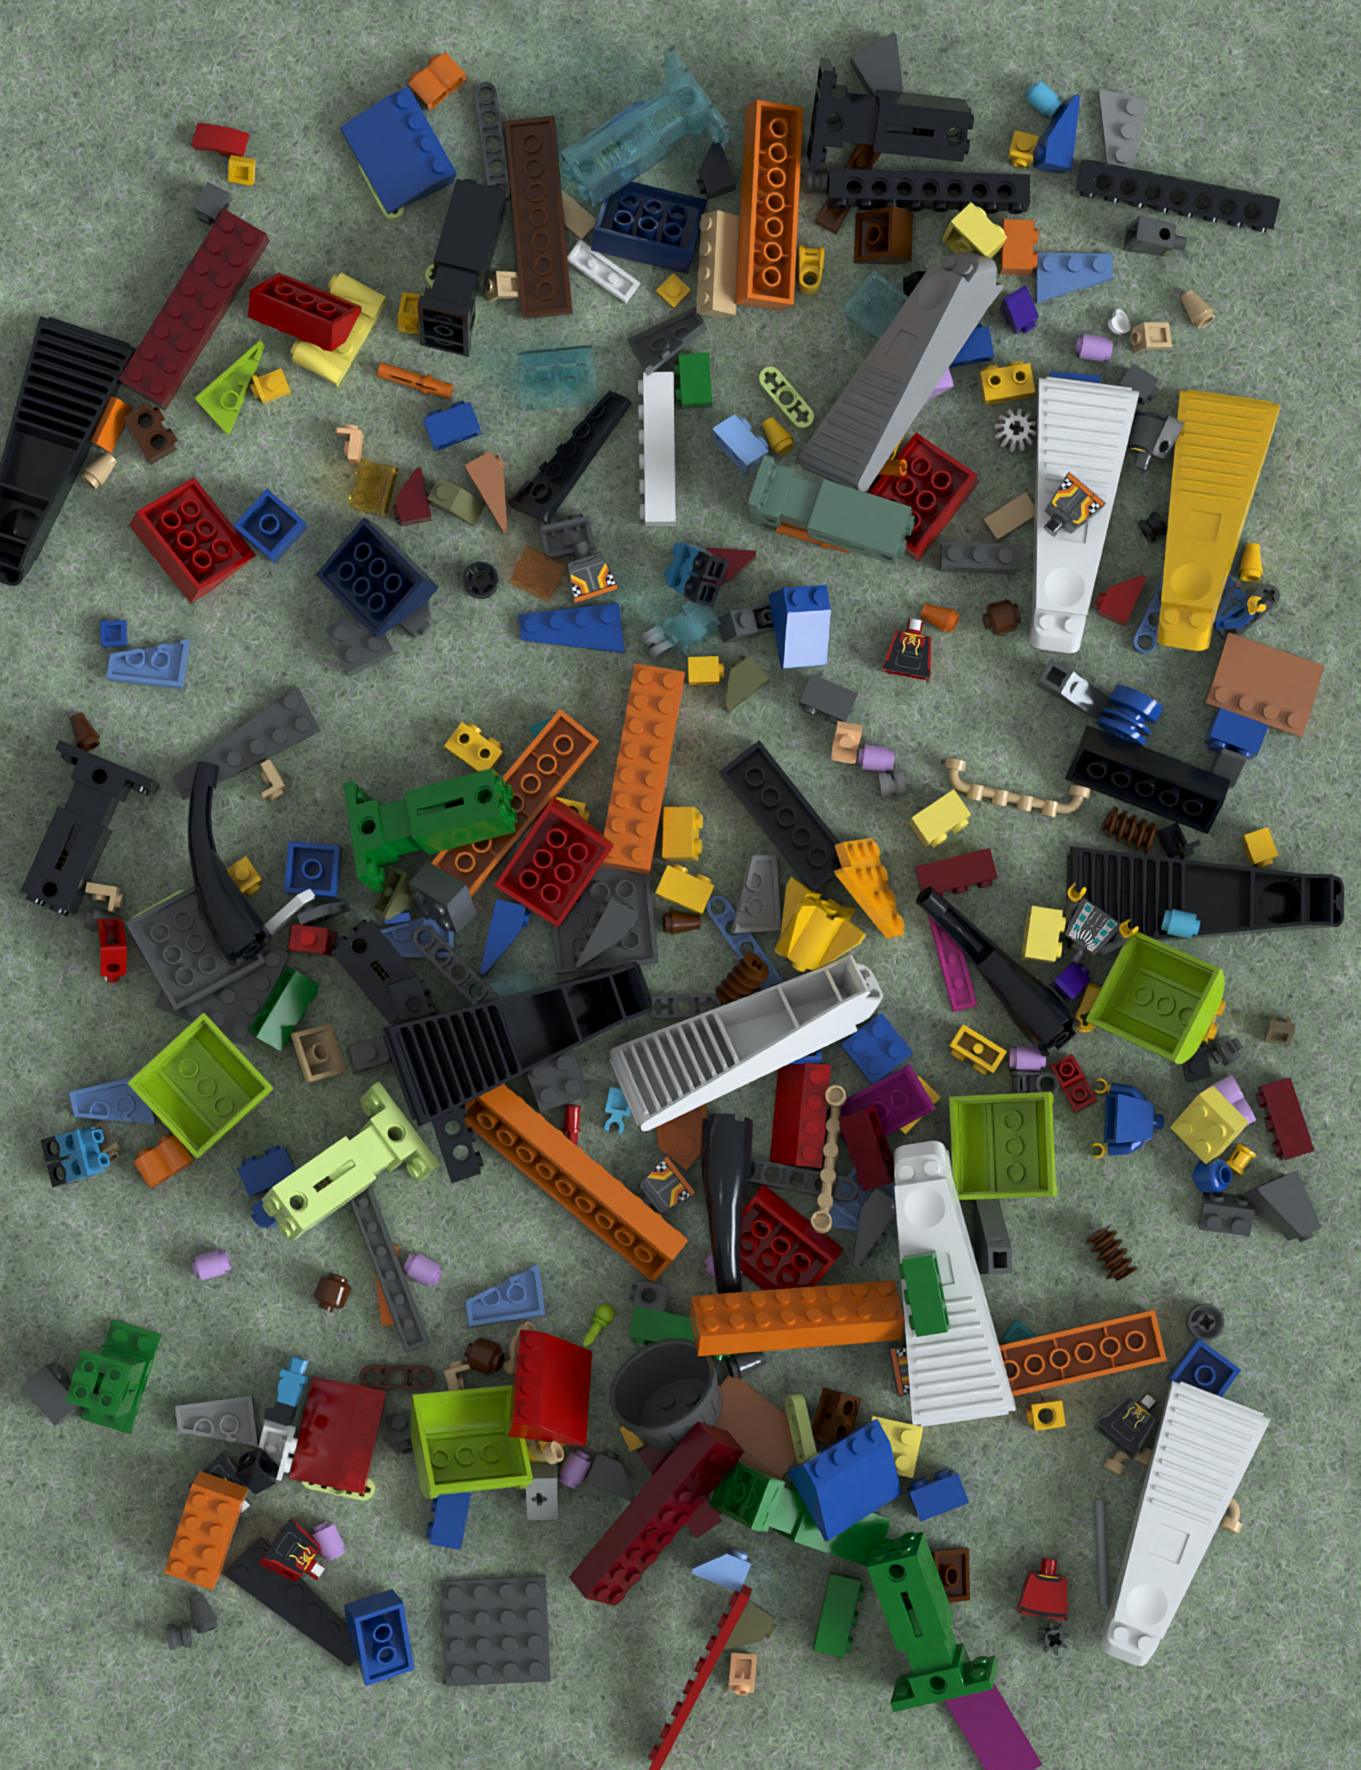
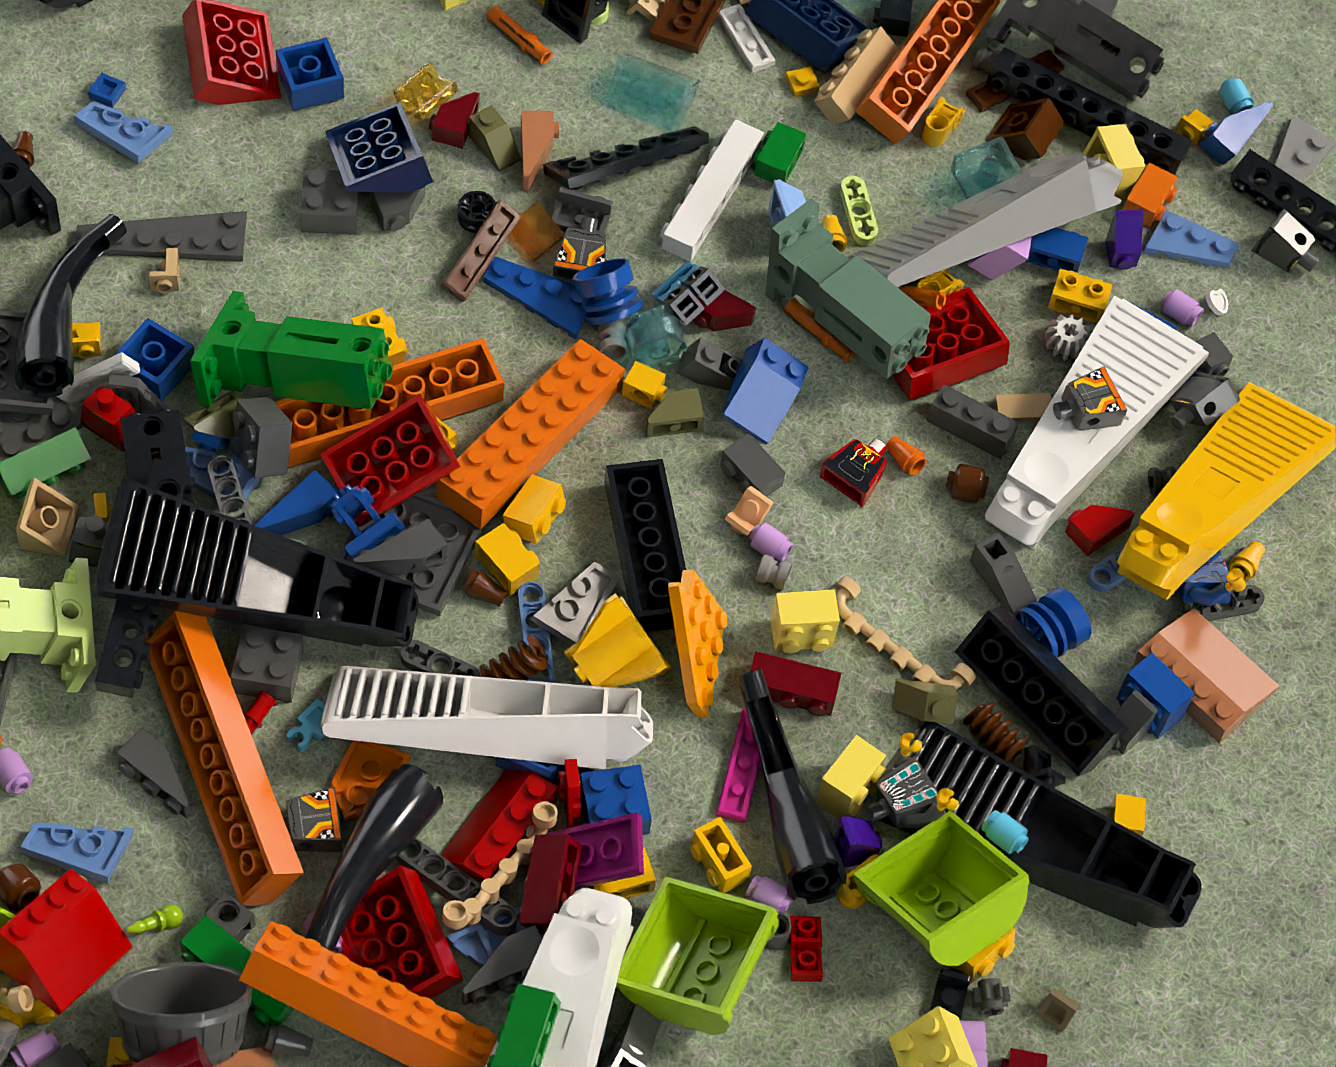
camera: 20 degrees right, 25 degrees down
(353, 447) = (430, 48): light nougat bracket -> none
(356, 1022) = (102, 508): none -> yellow plate
(452, 425) = (530, 82): blue brick -> none
(506, 618) = (481, 250): none -> reddish brown tile
(521, 1207) = (150, 763): none -> dark grey slope
(572, 937) = (349, 504): none -> blue tile
(633, 608) = (608, 291): none -> blue wheel
(666, 339) = (774, 109): dark grey wing -> none
(838, 1059) = (570, 792): none -> red wing
(1064, 833) = (925, 700): none -> olive slope
(1127, 1119) = (844, 1009): blue torso -> none
(1150, 336) = (1244, 325): tan bracket -> none
(1198, 311) = (1301, 328): tan cone -> none

